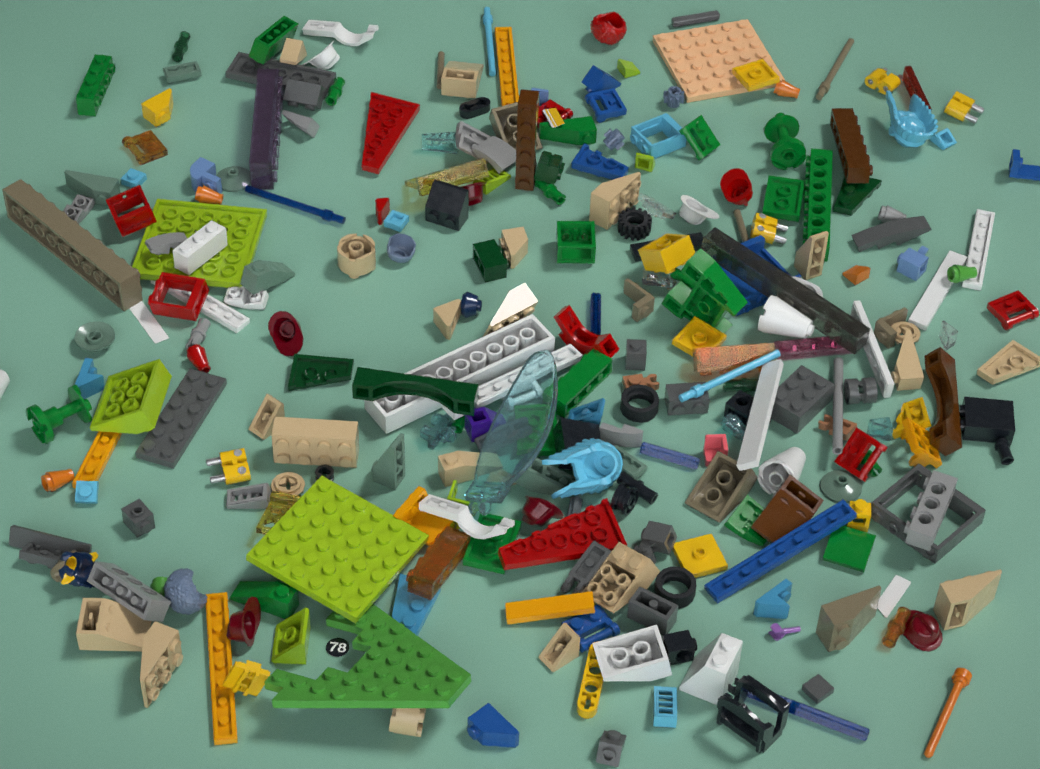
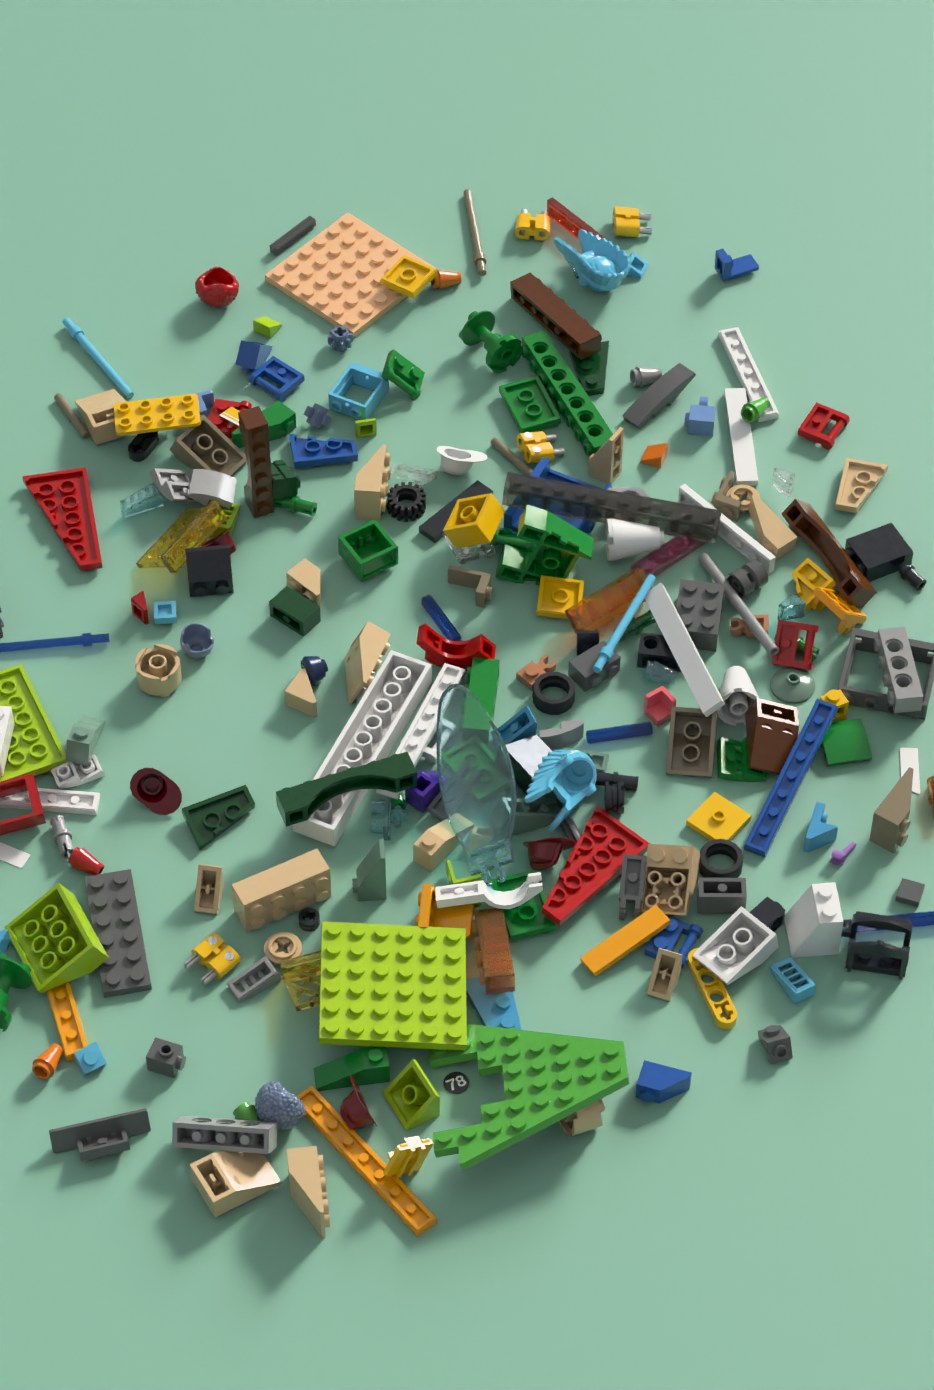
camera: 30 degrees left, 5 degrees up
(74, 568) = (149, 1140): dark blue hair -> none
(490, 86) = (157, 414): none -> yellow bracket
(506, 65) = (129, 370): light orange tile -> none
(635, 354) = (514, 643): dark grey brick -> none
(656, 538) = (672, 821): dark grey brick -> none
(695, 375) = (586, 640): none -> black slope
(736, 186) = (479, 413): red piece -> none

